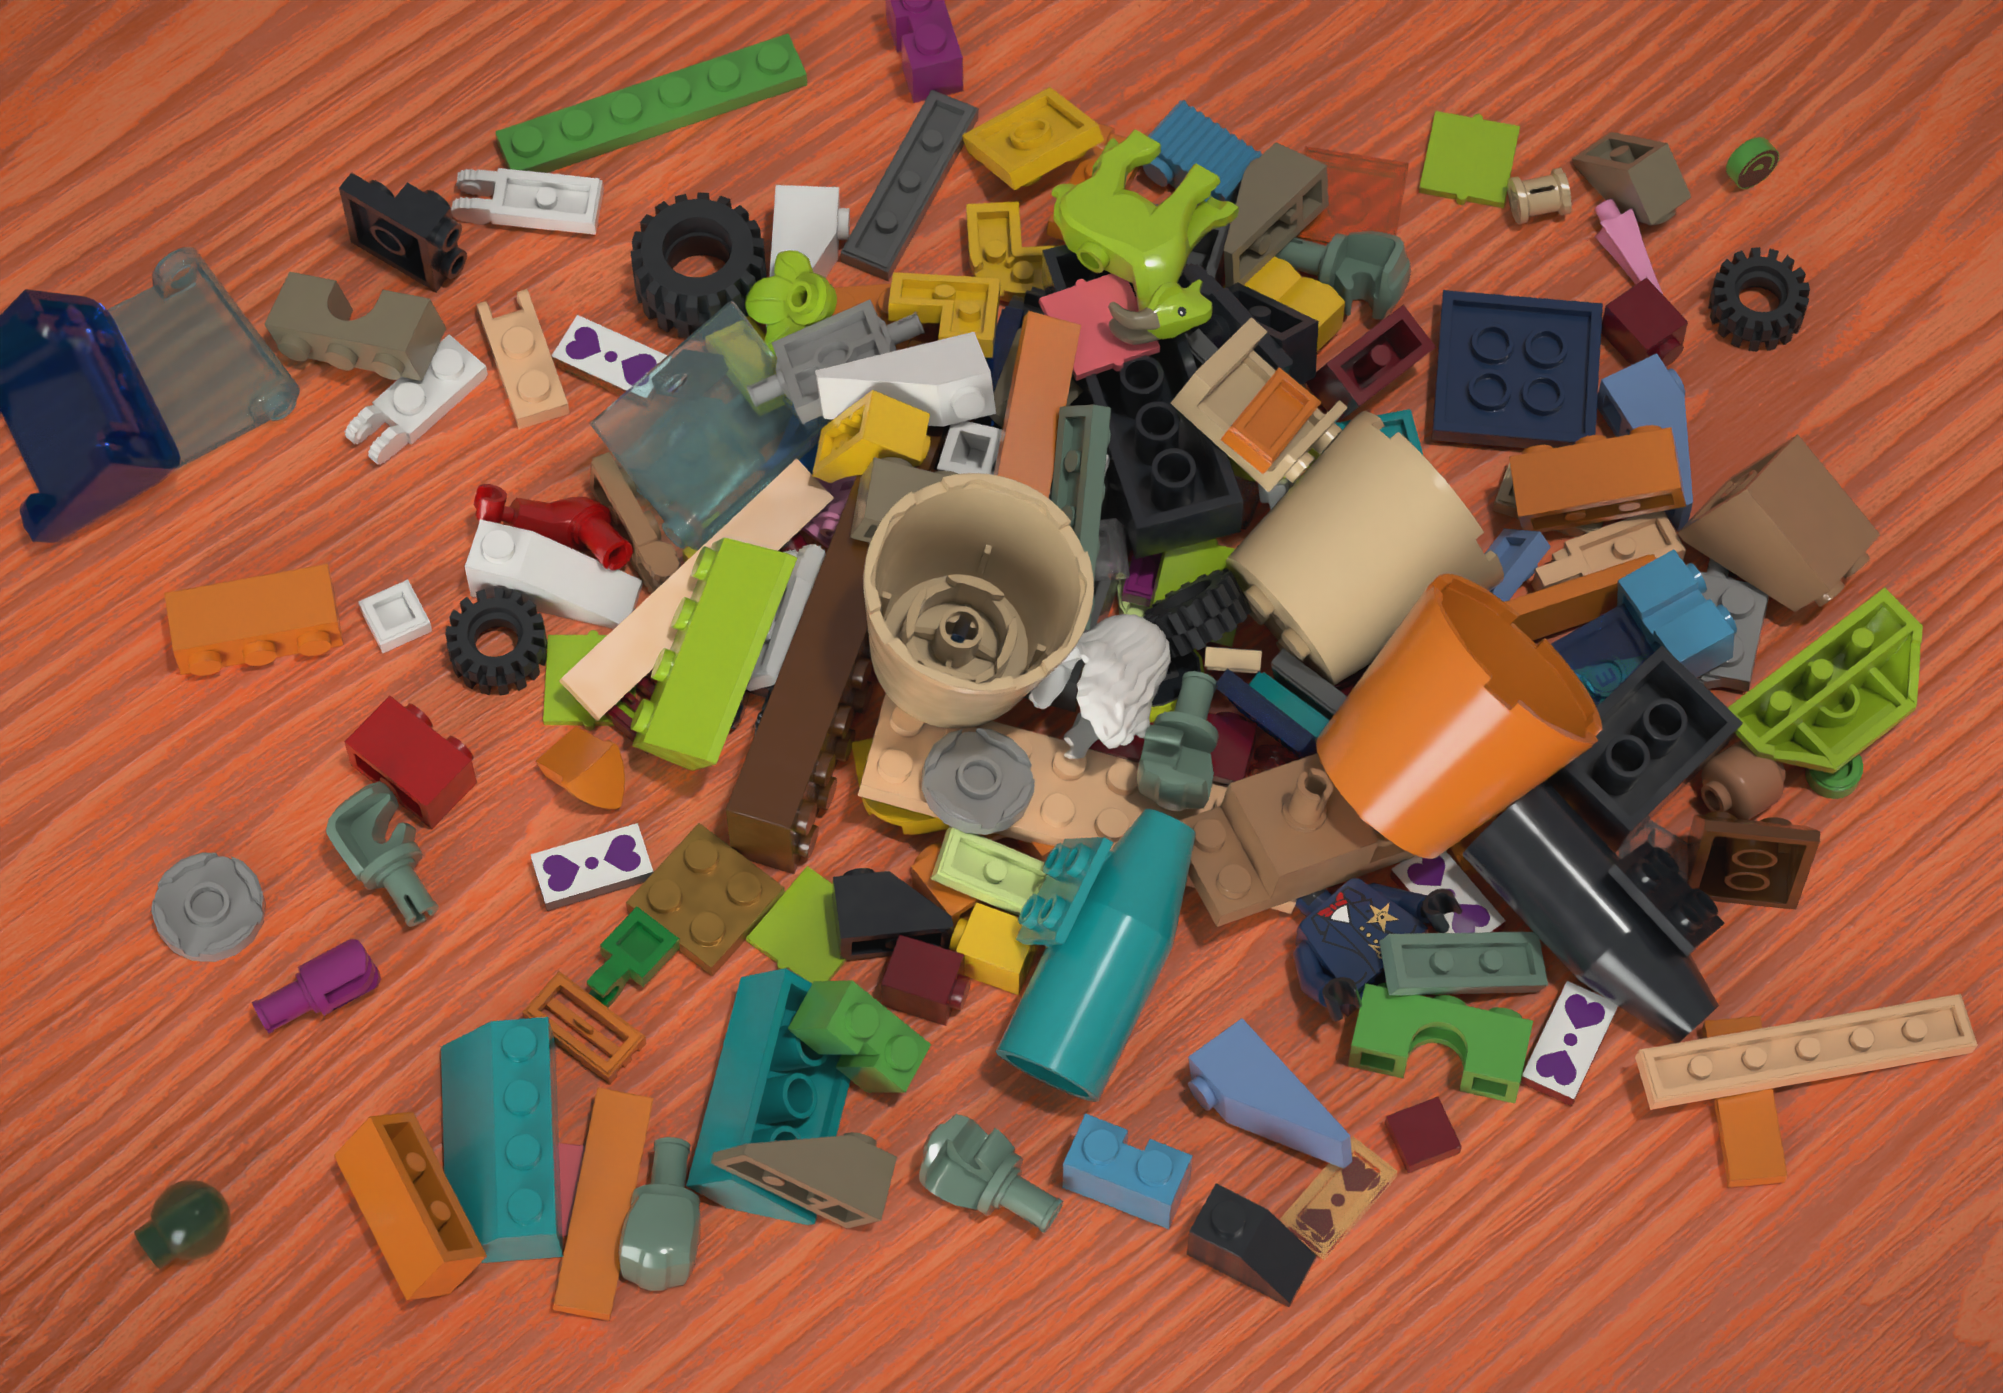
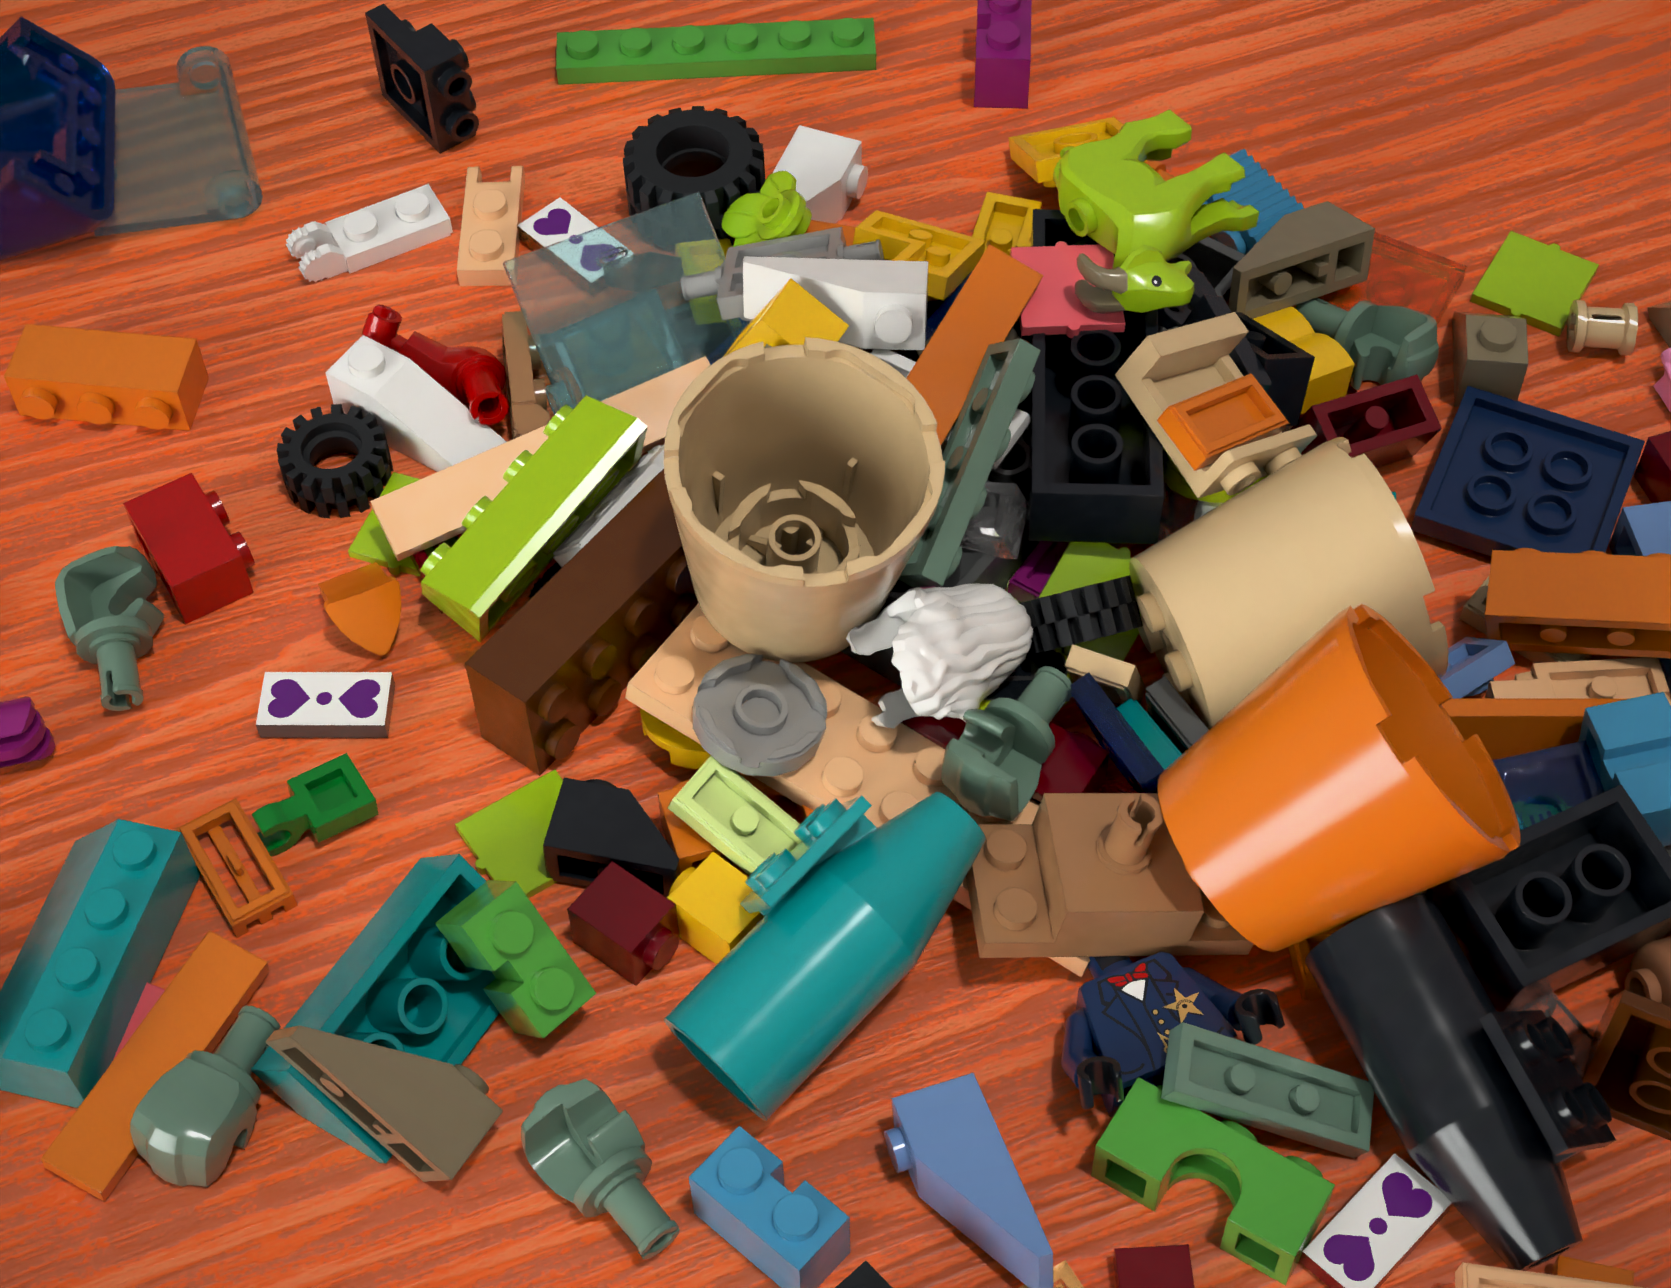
camera: 20 degrees right, 10 degrees down
(390, 340) = (360, 164): dark tan arch -> none
(395, 616) = (251, 415): white tile -> none
(530, 200) = (562, 94): white hinge -> none
(707, 897) = (430, 771): pearl gold plate -> none
(909, 185) = (944, 164): dark grey tile -> none
(1427, 875) = (1303, 1032): tile -> none
(1451, 249) = (1489, 354): none -> dark tan slope

